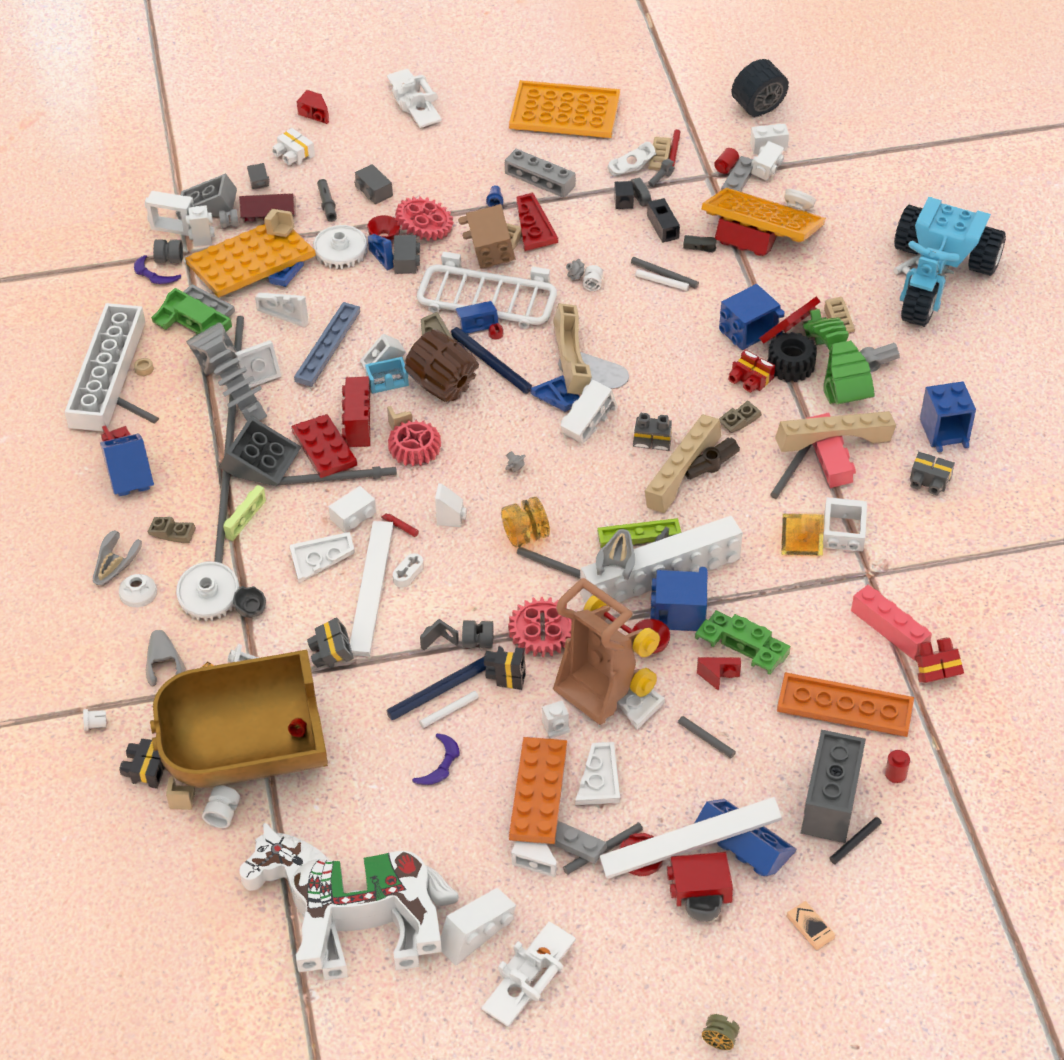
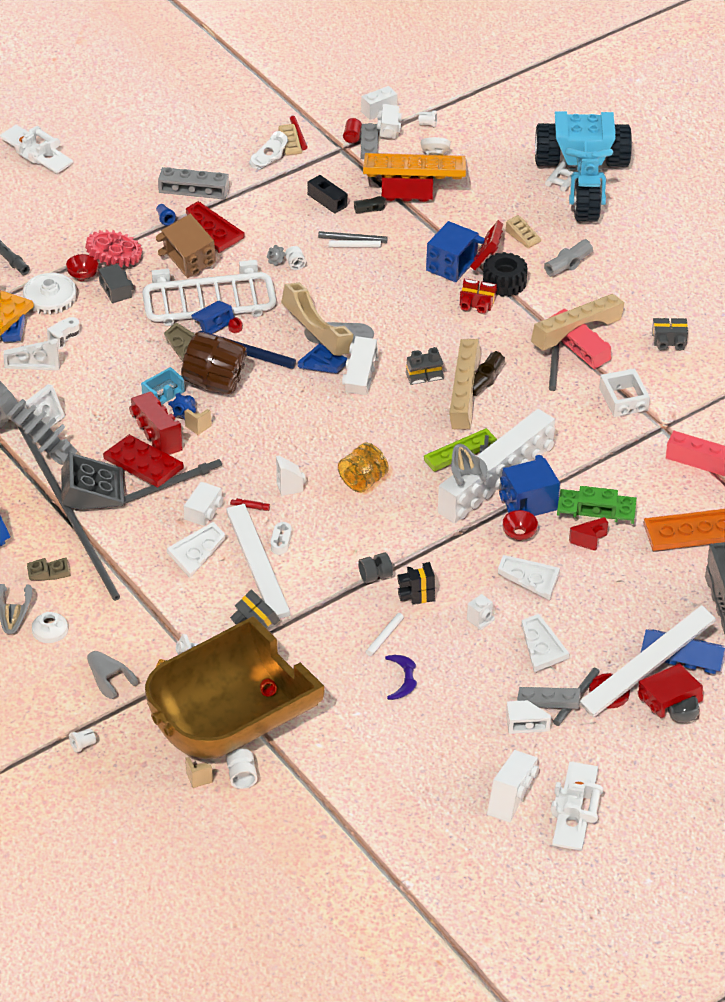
camera: 25 degrees left, 5 degrees down
(145, 766) = (154, 756): black hips -> none
(207, 590) = (117, 606): white wheel -> none
(244, 513) = (107, 535): yellowish green plate -> none
(249, 601) = (160, 604): dark grey hair -> none
(327, 344) = (91, 377): sand blue plate -> none
(329, 289) = (64, 331): none -> white leg
(373, 184) = (47, 232): dark grey brick -> none
(382, 250) = (92, 284): blue wing -> none
(383, 349) = (147, 367): white slope -> none
(393, 398) = (181, 404): none -> blue rock
(396, 892) = (428, 781): white animal -> none
(414, 443) = (223, 435): coral gear -> none
(436, 630) = (339, 575): dark grey bracket -> none
(436, 689) = (367, 619): dark blue axle -> none
(515, 462) = (320, 425): light grey plant -> none
(526, 628) = (425, 544): coral gear -> none
(538, 790) = (501, 668): orange plate -> none
(548, 562) = (401, 495): dark grey bar -> none
(565, 109) = (181, 123): light orange plate -> none
(599, 658) = (499, 545): nougat piece -> none
(623, 194) = (280, 182): black brick -> none
(641, 191) = (292, 175): dark grey beam -> none
(666, 169) = (303, 153): dark grey bar -> none
(706, 737) = (608, 587): dark grey bar -> none
(741, 417) = (489, 334): dark tan slope -> none
(760, 87) = (350, 61): black wheel -> none
(802, 533) = (596, 409): clear yellow slope -> none
(811, 168) = (428, 118): none -> white bush
(847, 370) = (561, 270): bright green piece -> none
(947, 415) = (661, 283): blue container -> none

